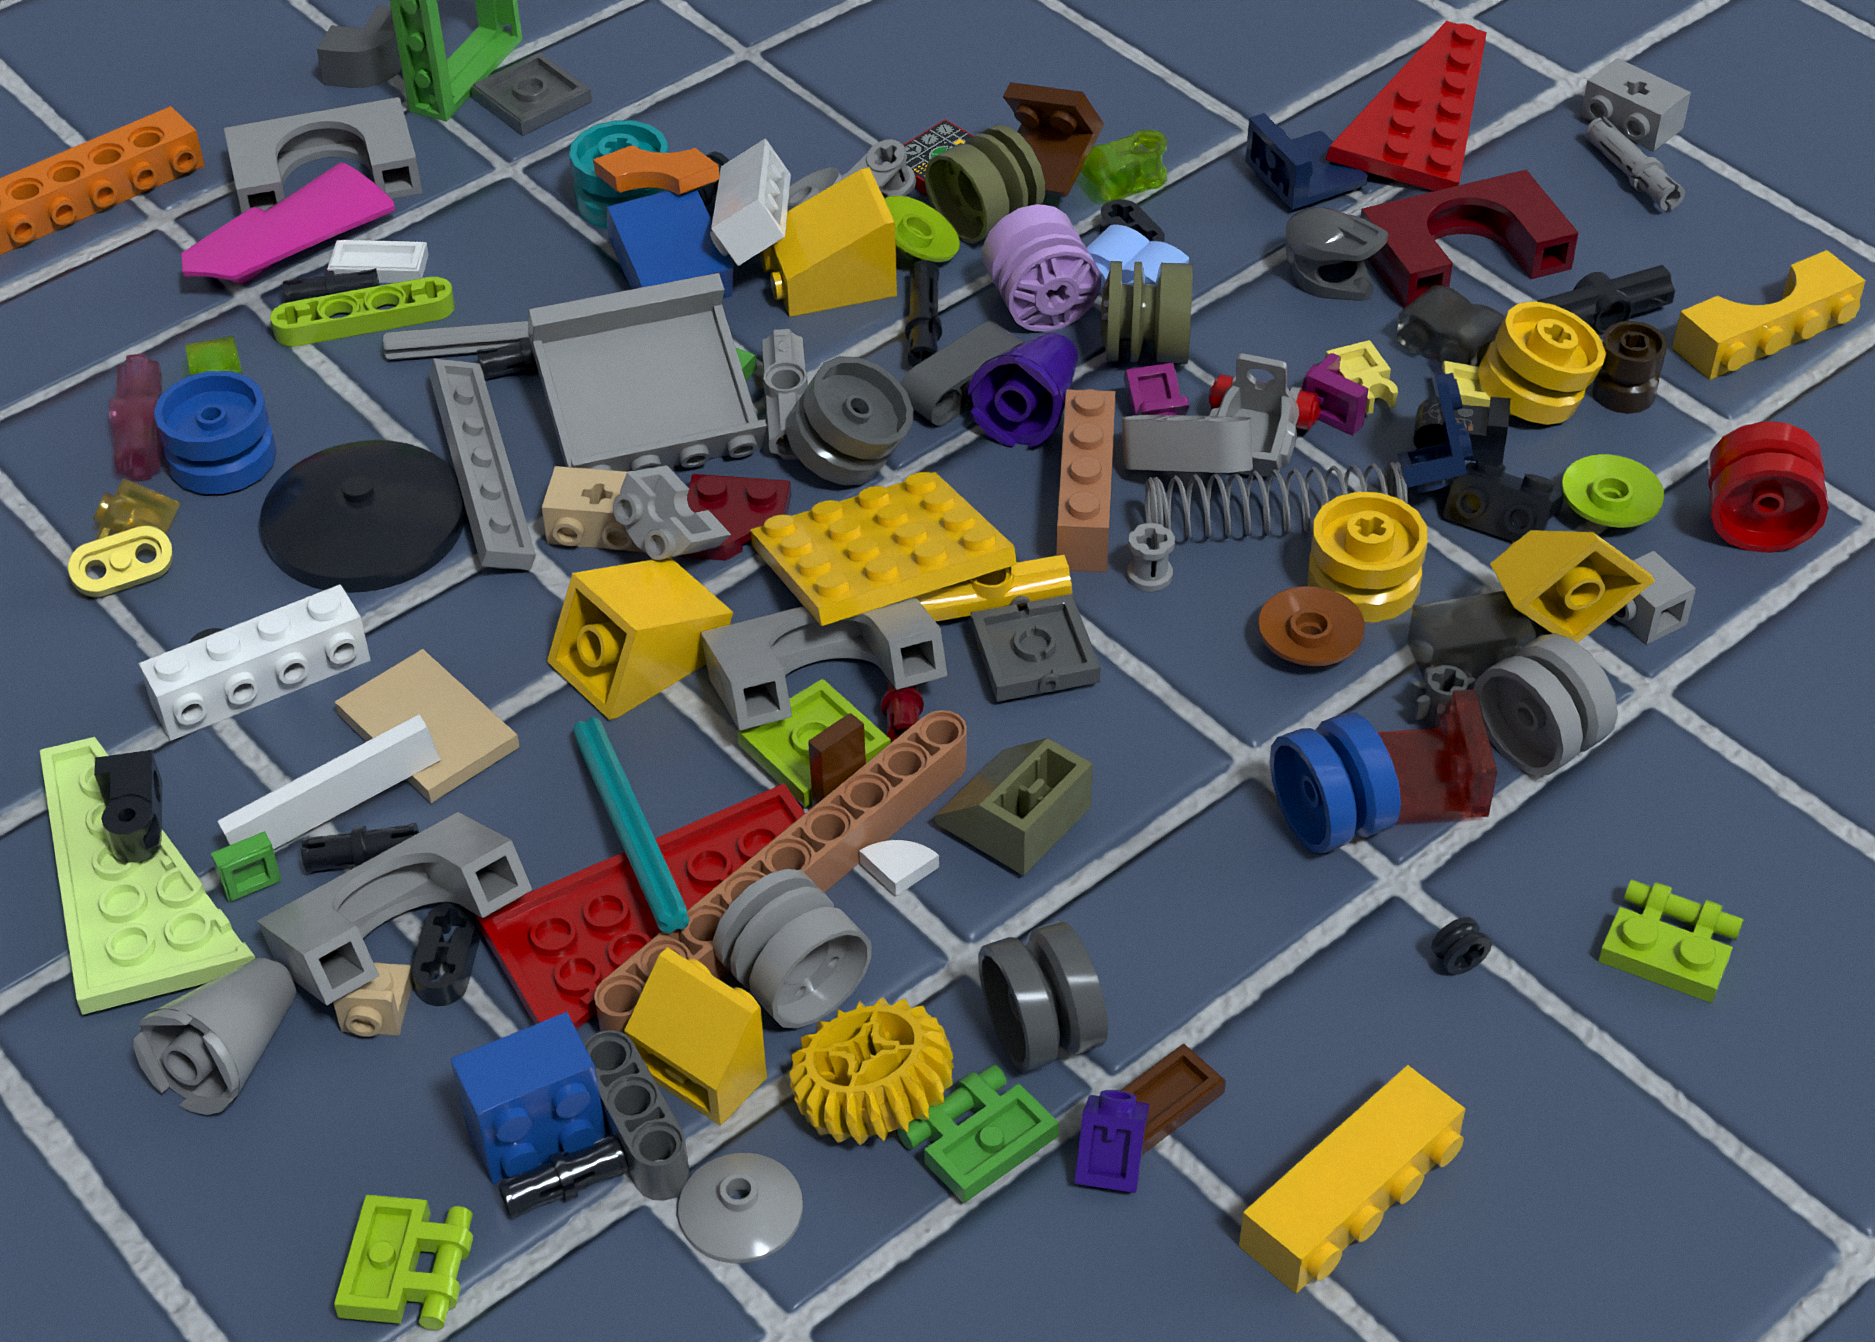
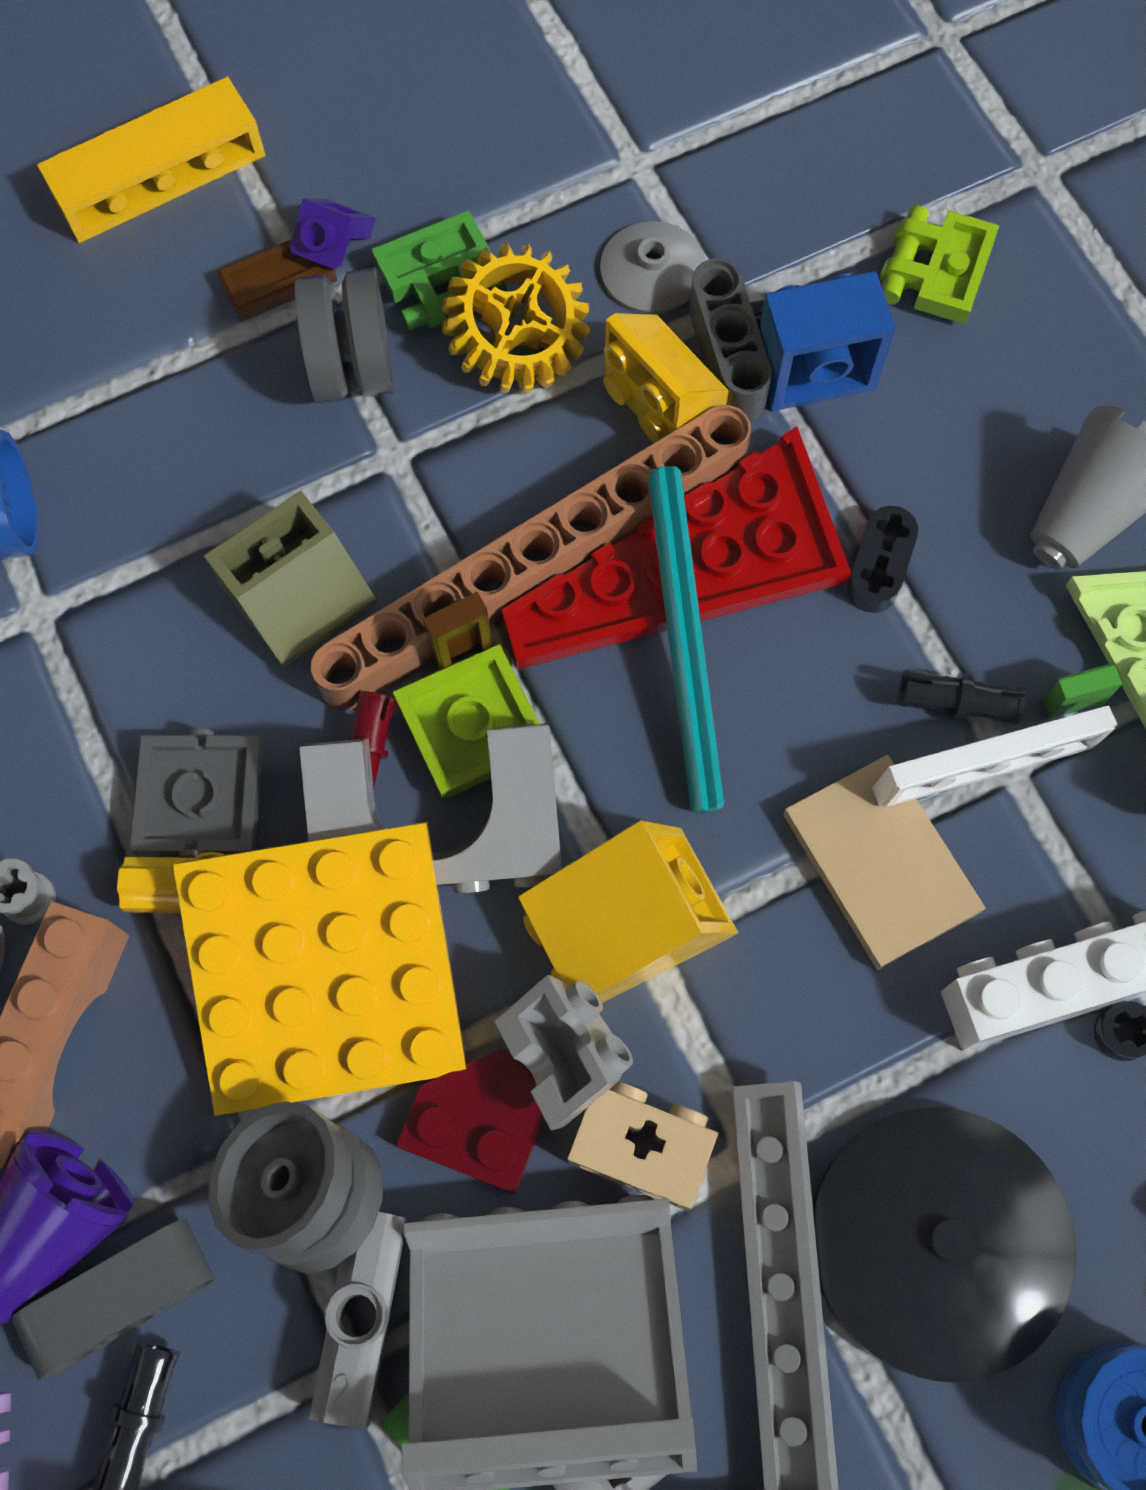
camera: 165 degrees left, 25 degrees up
(377, 1005) = (955, 519): tan bracket -> none
(449, 862) = (1011, 580): light grey arch -> none
(792, 948) = (553, 432): light grey wheel -> none
(898, 863) = (422, 557): white tile -> none

